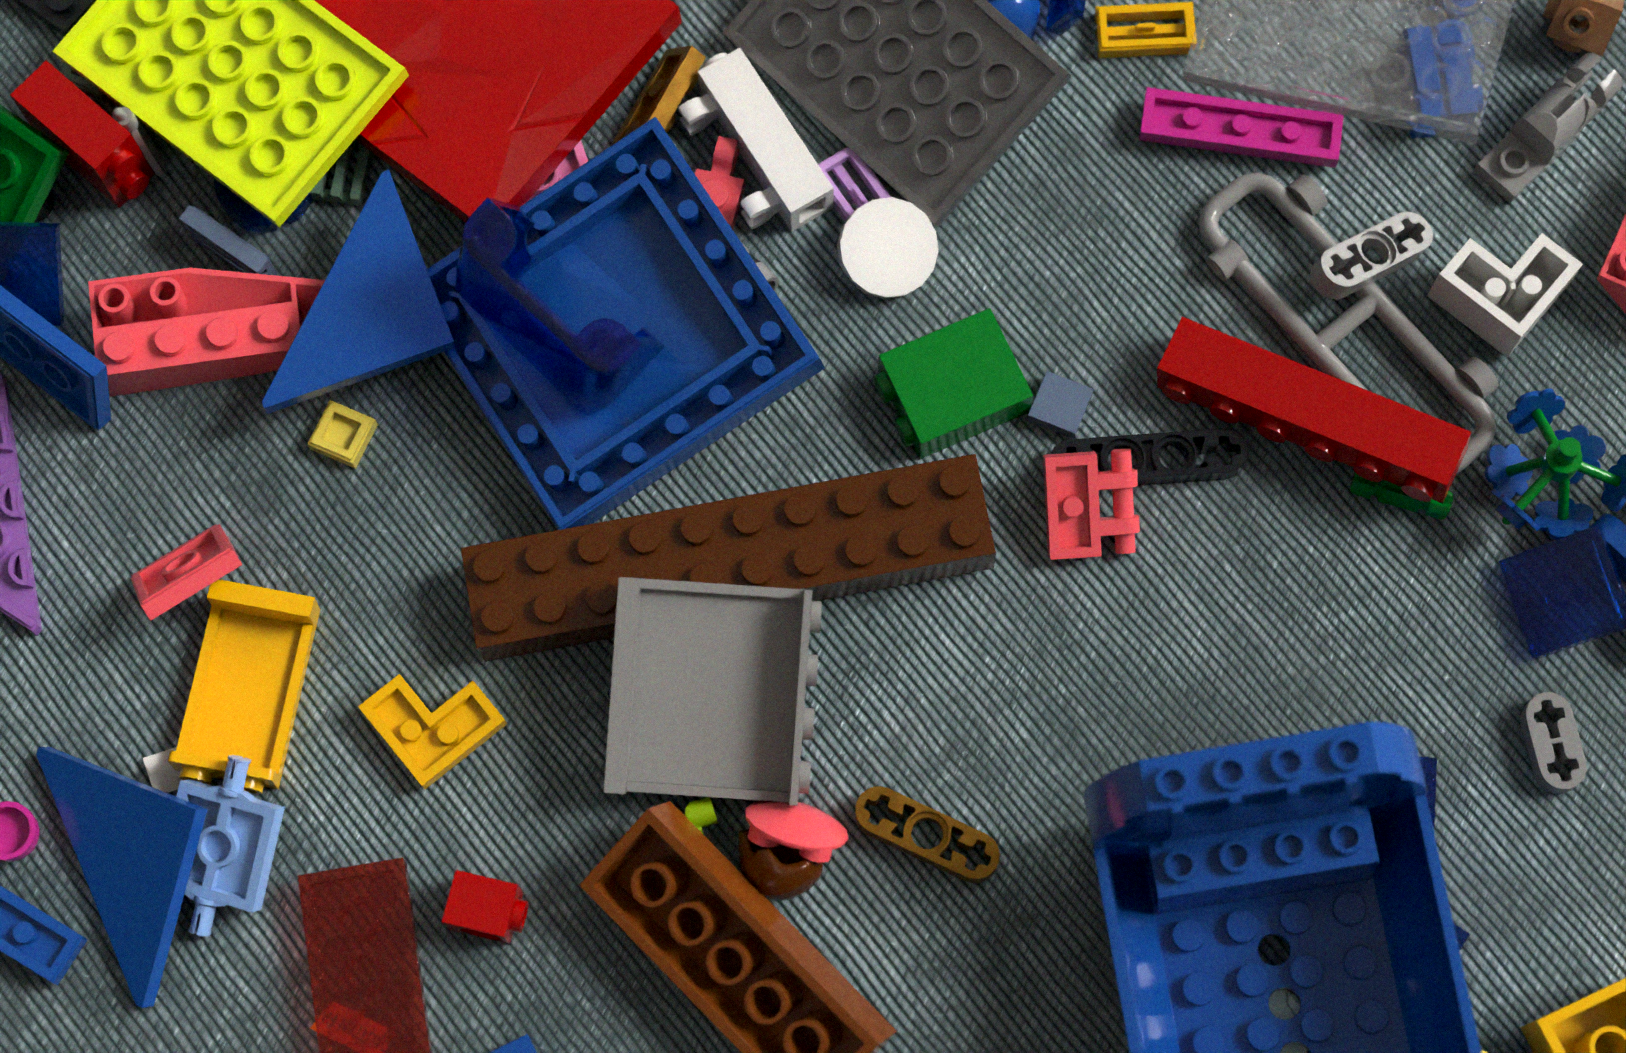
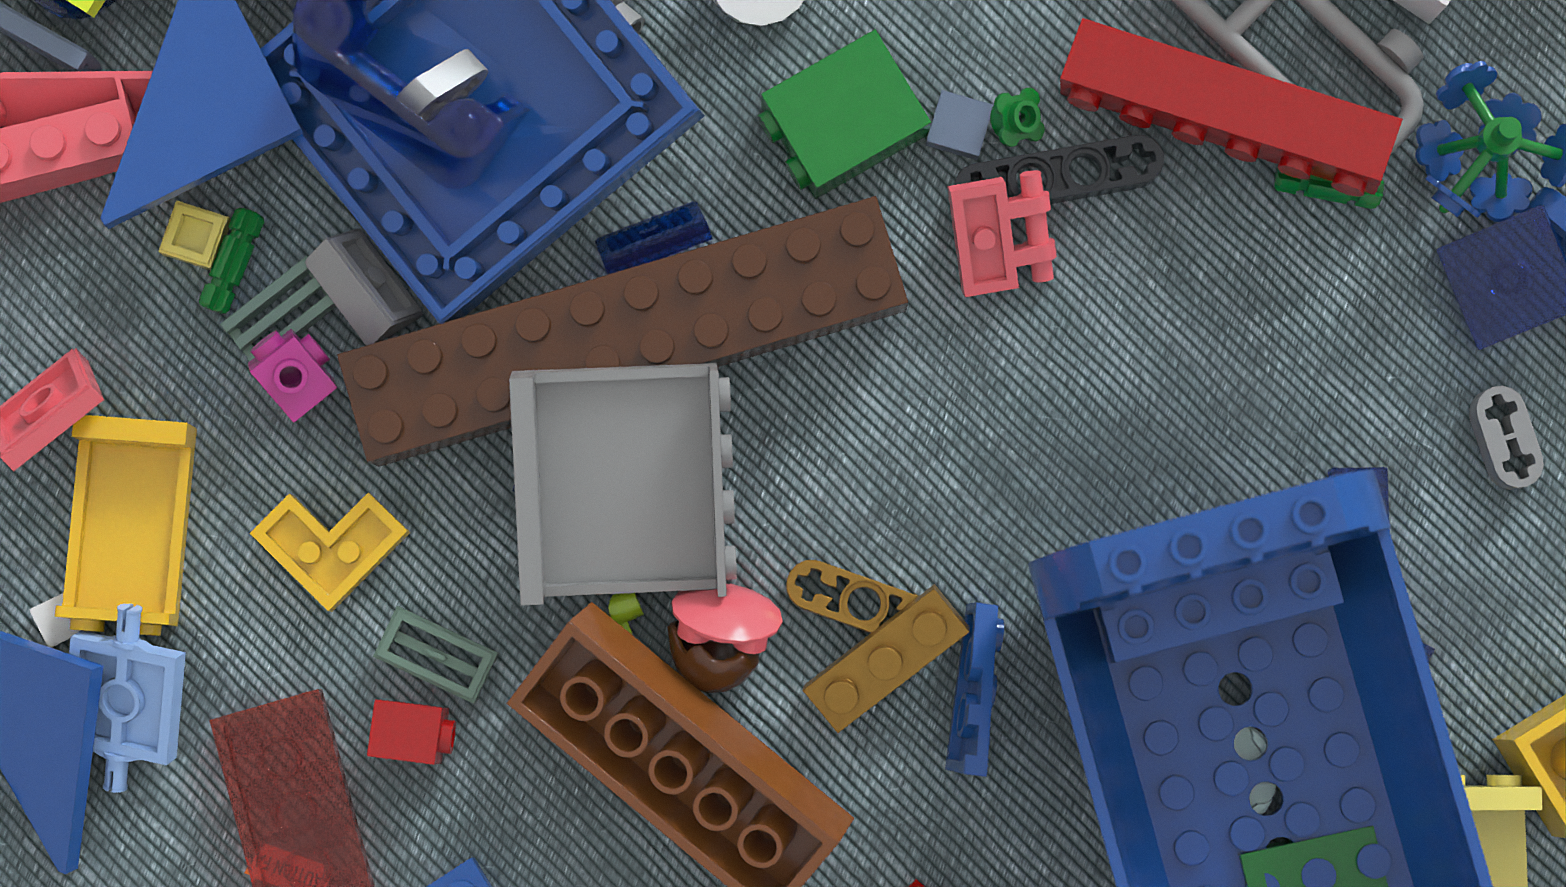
camera: 10 degrees left, 10 degrees up
(373, 459) = (231, 260): none -> green axle
(403, 495) = (269, 295): none -> sand green tile
(417, 562) = (292, 371): none -> dark pink brick
(490, 492) = (362, 286): none -> light grey slope
(554, 863) = (479, 674): none -> sand green tile
(595, 305) = (443, 84): none -> light grey beam
(766, 475) = (654, 238): none -> clear blue tile
(942, 885) = (886, 658): none -> pearl gold plate
(1024, 924) = (975, 691): none -> blue wing
(1104, 406) = (1006, 120): none -> green plate

